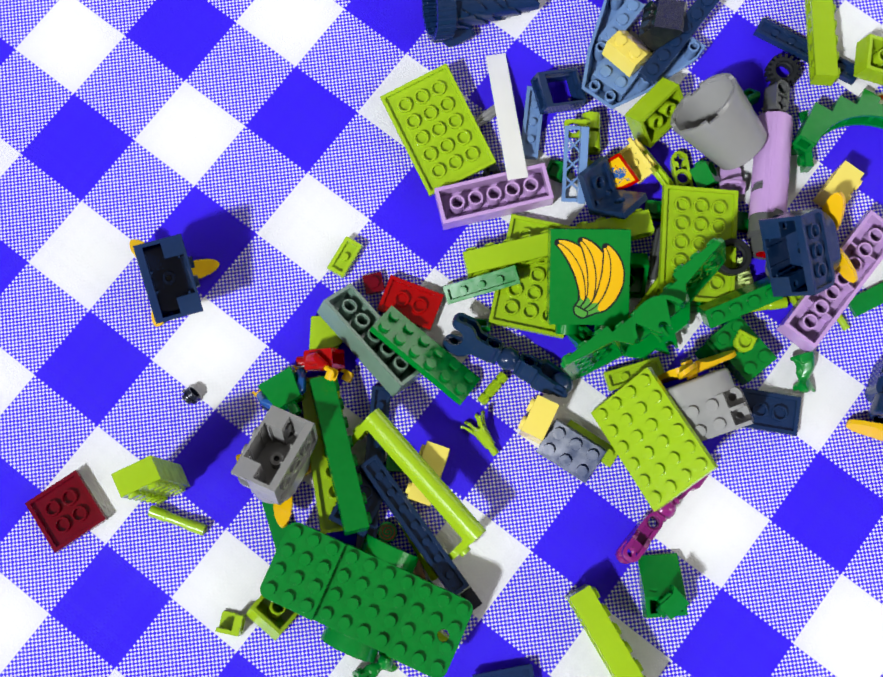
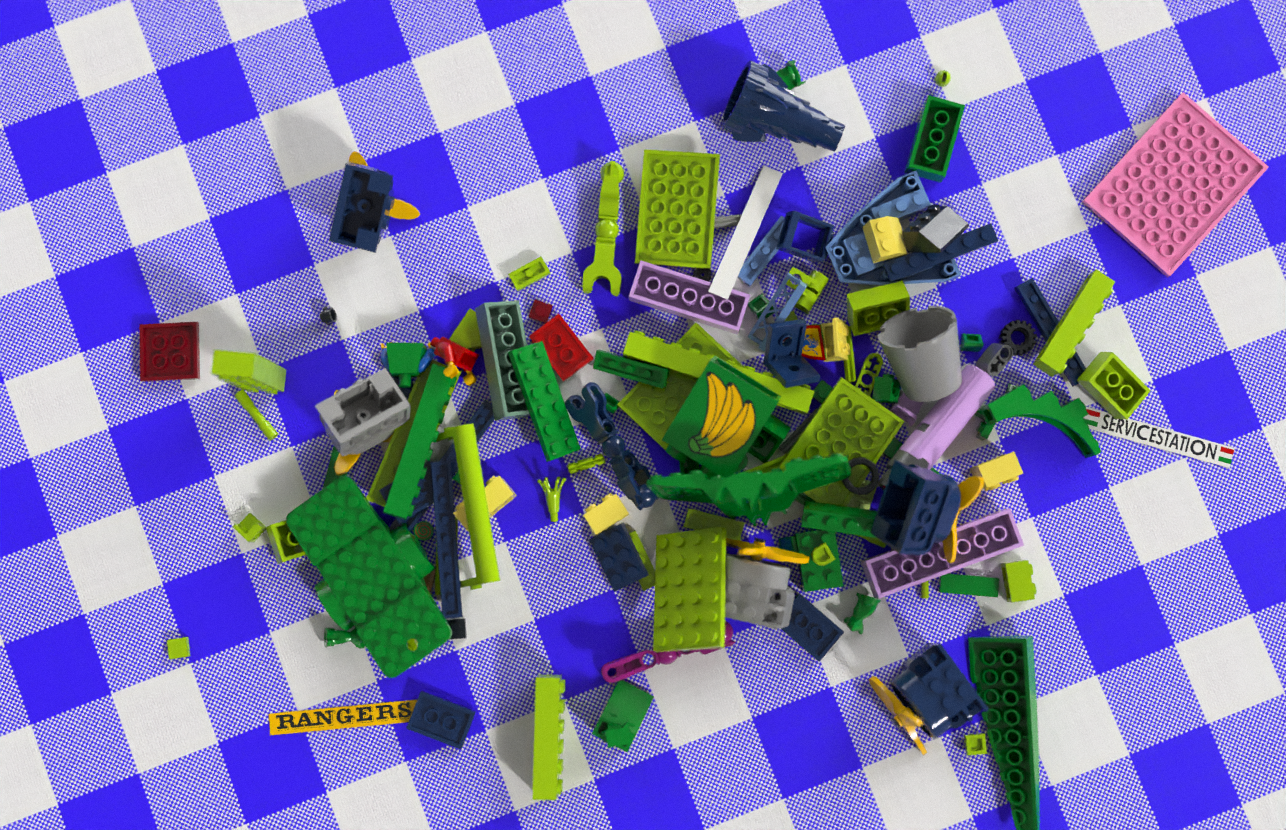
camera: 30 degrees right, 5 degrees up
(389, 183) = (606, 231): none -> lime piece

